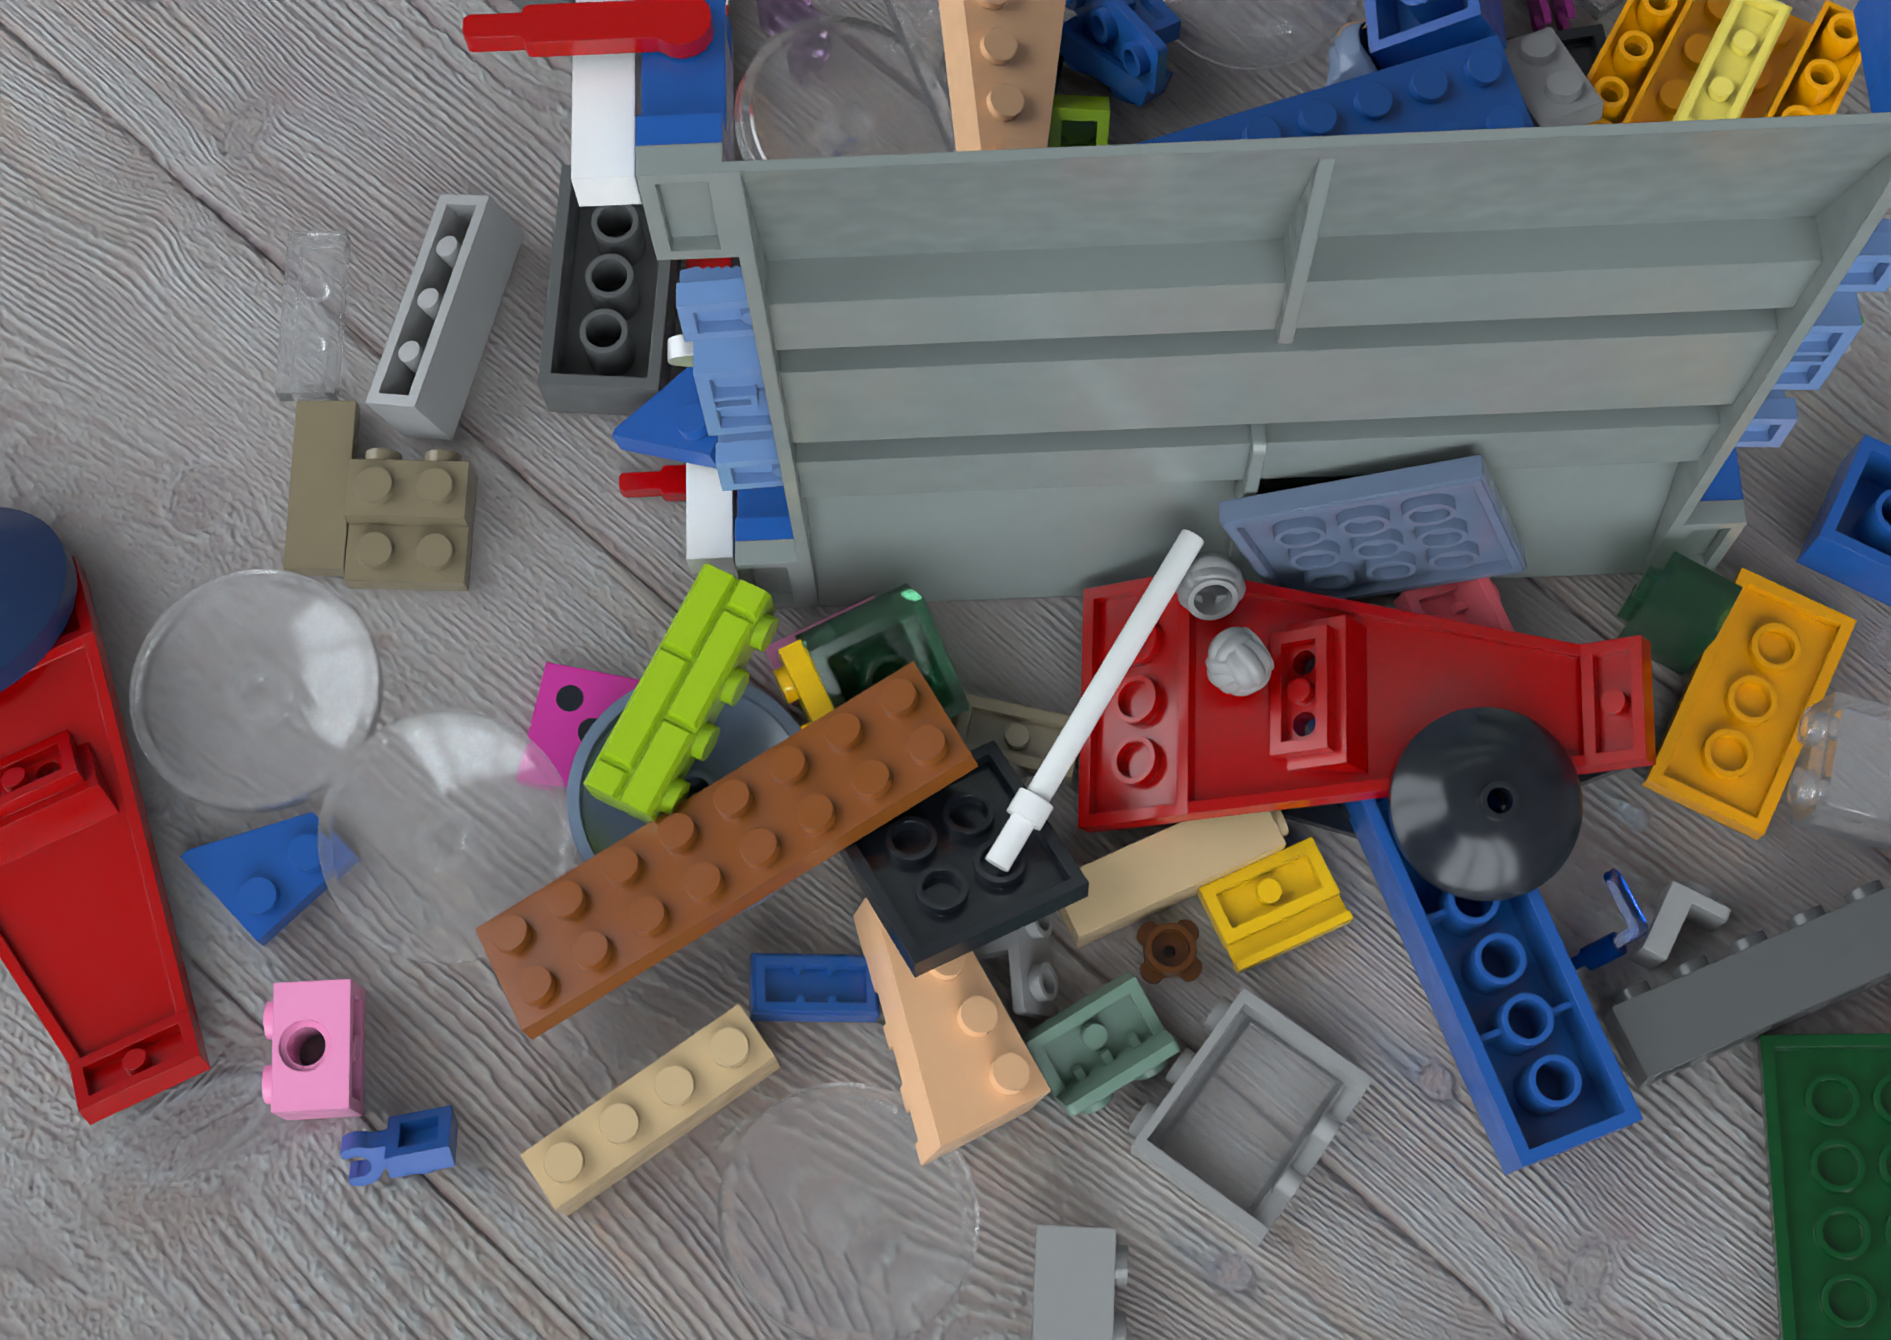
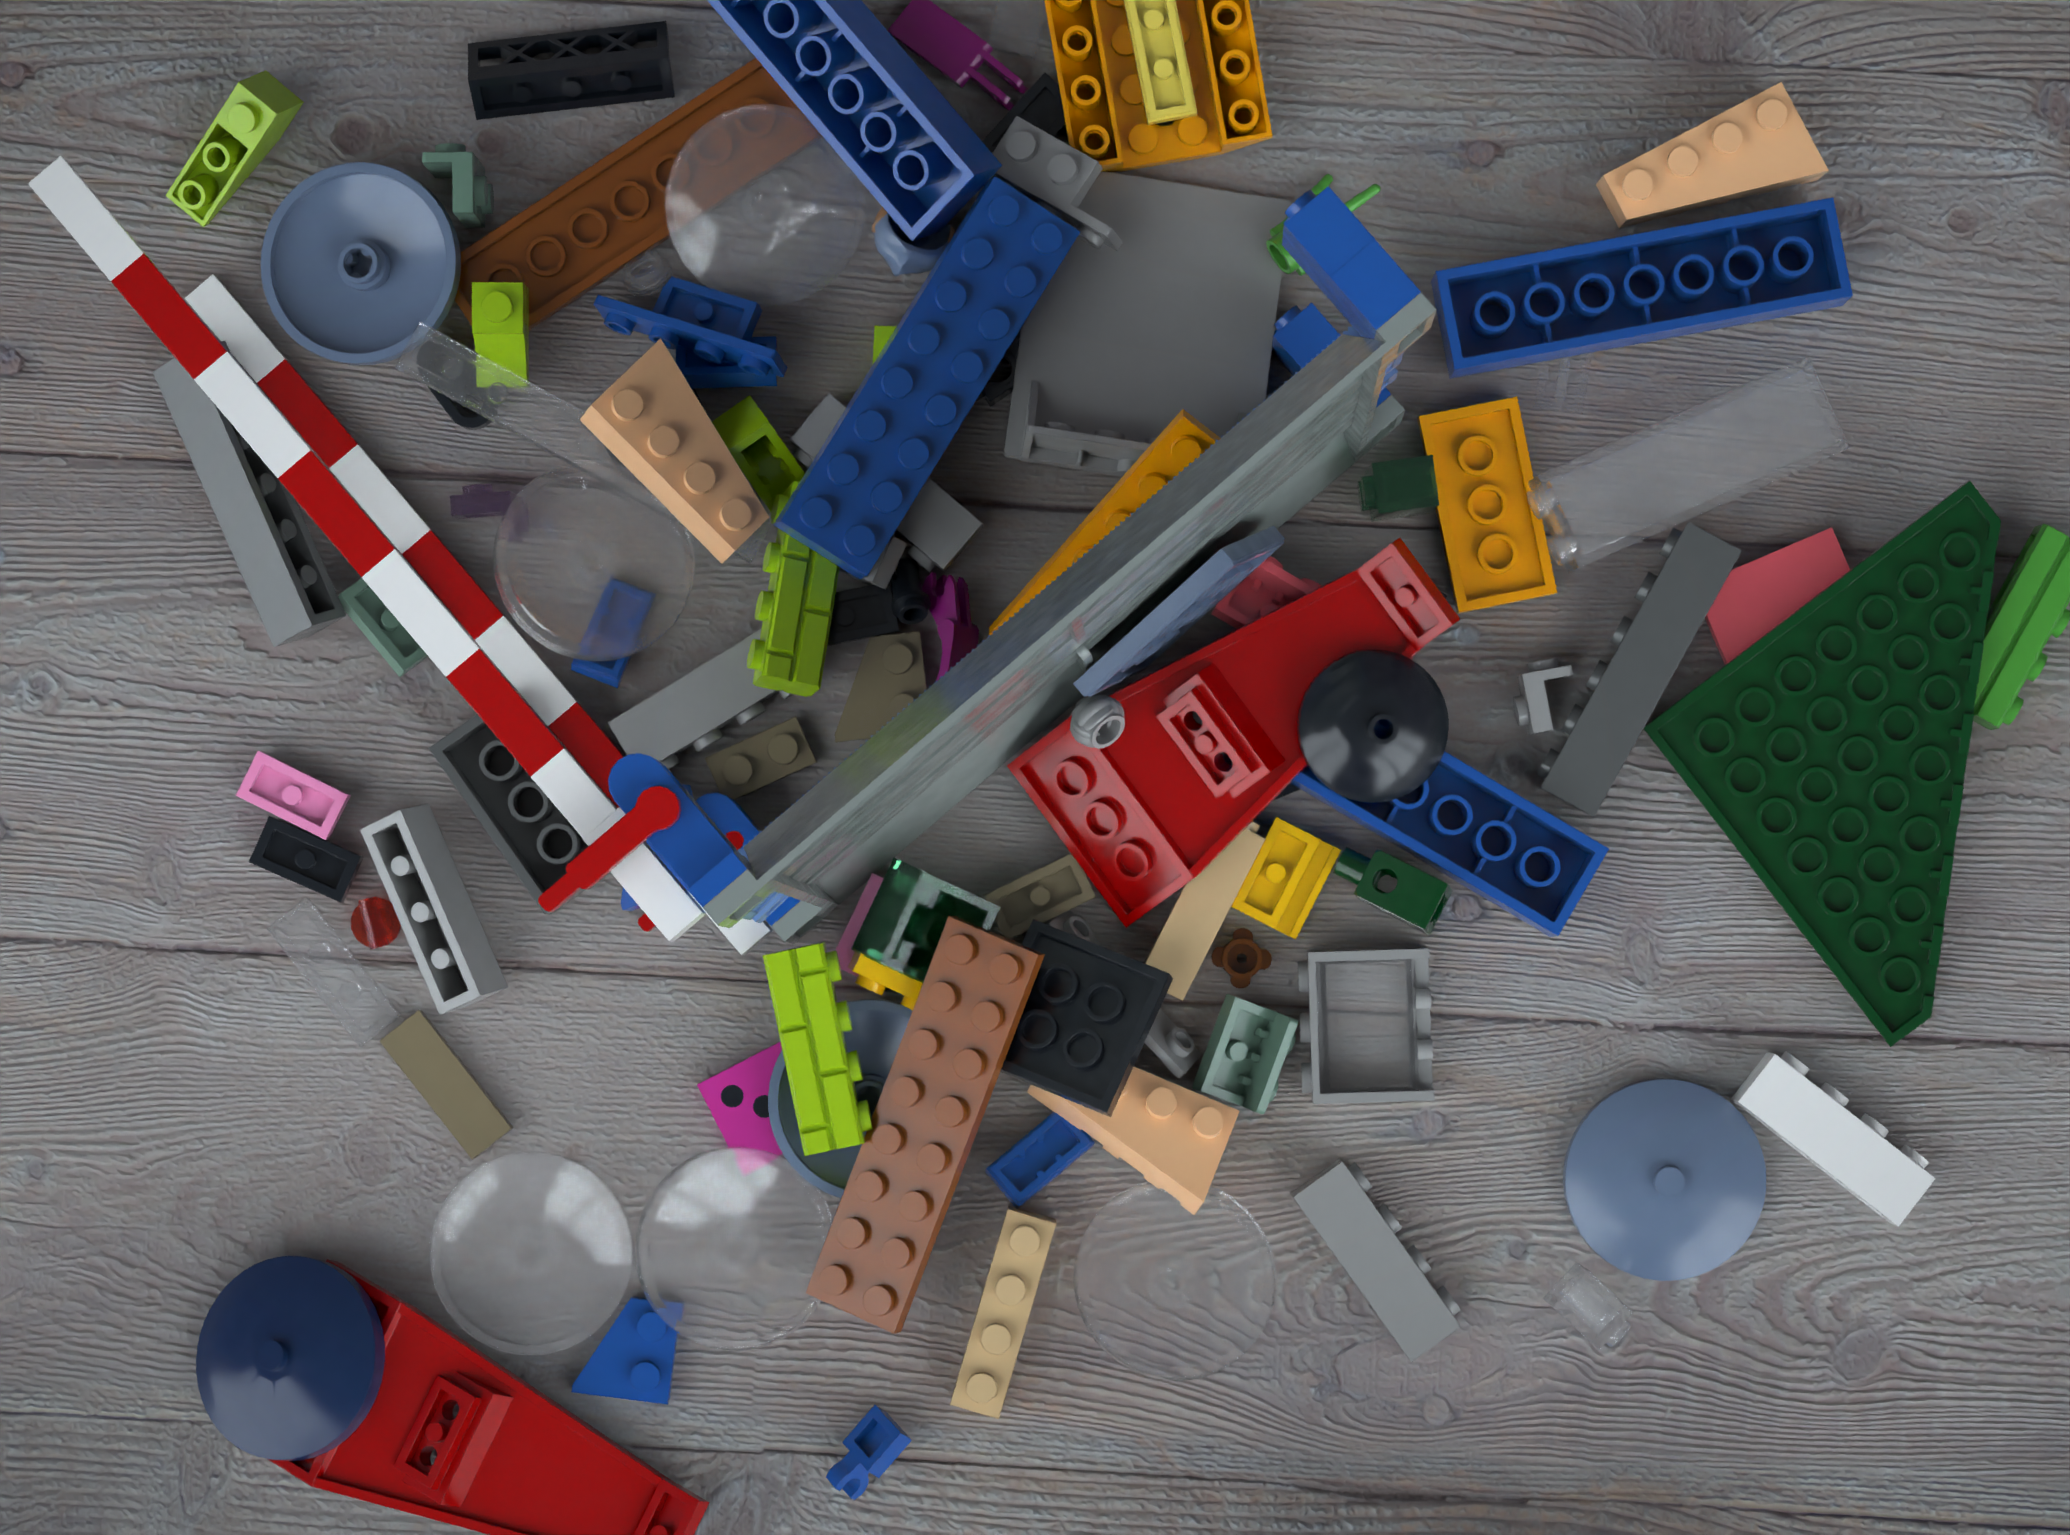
camera: 40 degrees left, 15 degrees up
(336, 1081) = (758, 1409): bright pink brick -> none
(375, 199) = (306, 859): none -> black plate
(382, 295) = (375, 922): none -> clear red plate
(409, 521) = (526, 1062): dark tan plate -> none
(413, 138) = (293, 795): none -> bright pink plate
(1031, 805) = (1098, 955): white bar -> none
(1238, 662) = (1154, 760): light grey piece -> none
(1385, 999) = (1414, 901): none -> dark green torso
(1614, 944) = (1511, 746): clear blue piece -> none

